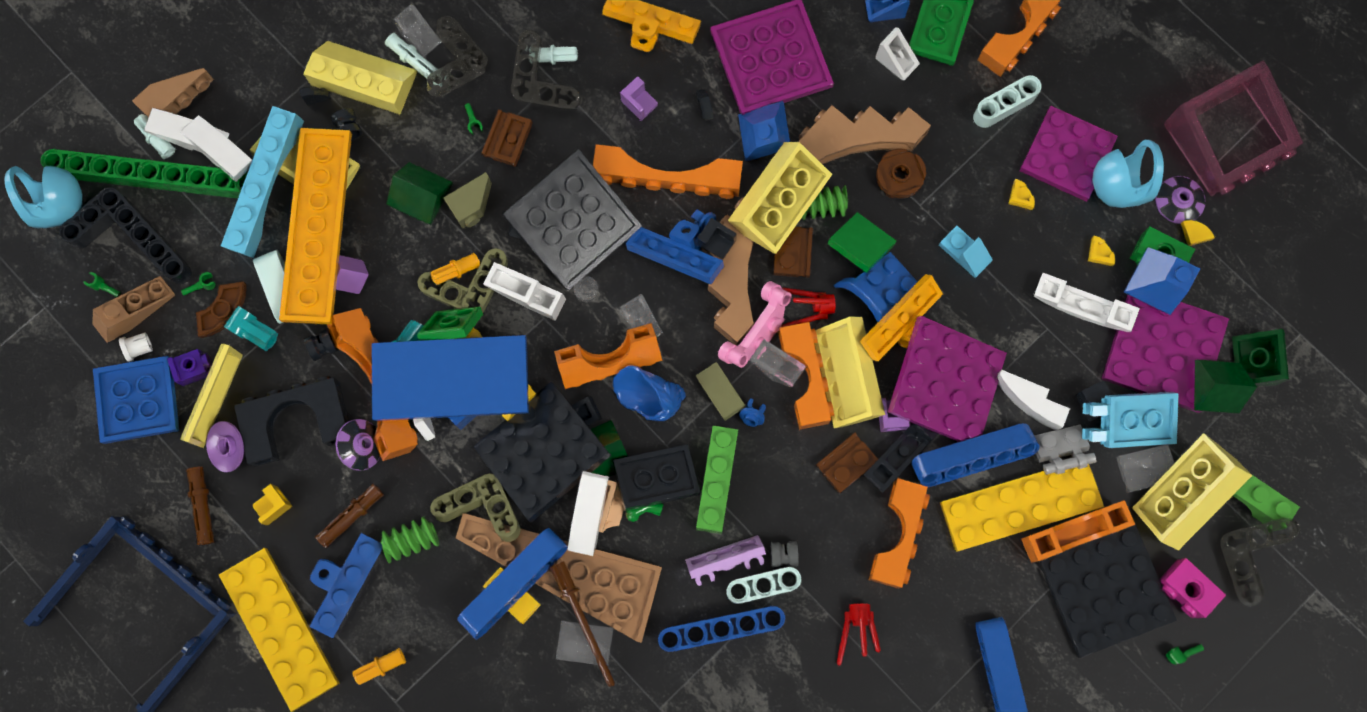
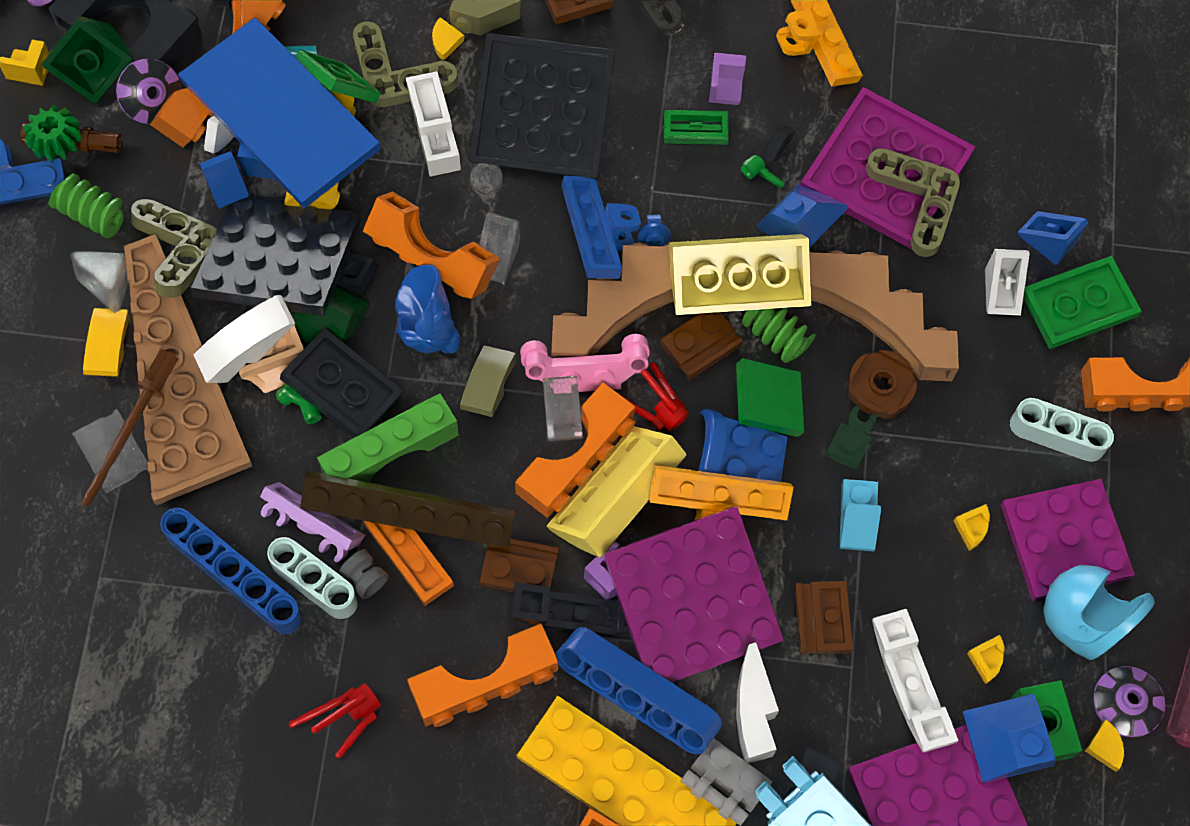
camera: 45 degrees right, 10 degrees down
(308, 464) = (88, 57): none -> dark green slope
(353, 523) = (52, 133): none -> green gear
(455, 269) = (400, 44): light orange axle -> none
(466, 445) = (224, 179): none -> blue slope
(466, 565) = (102, 275): none -> clear slope
(470, 238) = (445, 38): none -> yellow tile
(512, 583) = (115, 326): blue beam -> none
(640, 157) = (696, 131): none -> green tile
(708, 129) = (754, 166): none -> green hand
(717, 177) = (709, 207): orange arch -> none
(717, 239) = (640, 247): black panel -> none
(751, 416) = (486, 431): blue plate -> none
(769, 500) = (407, 509): none -> dark brown plate
(791, 519) = (412, 560): none -> orange plate
(807, 46) = (927, 187): none -> olive beam
(919, 220) = (851, 442): none -> clear green plate
(1011, 321) = (823, 617): none -> reddish brown plate

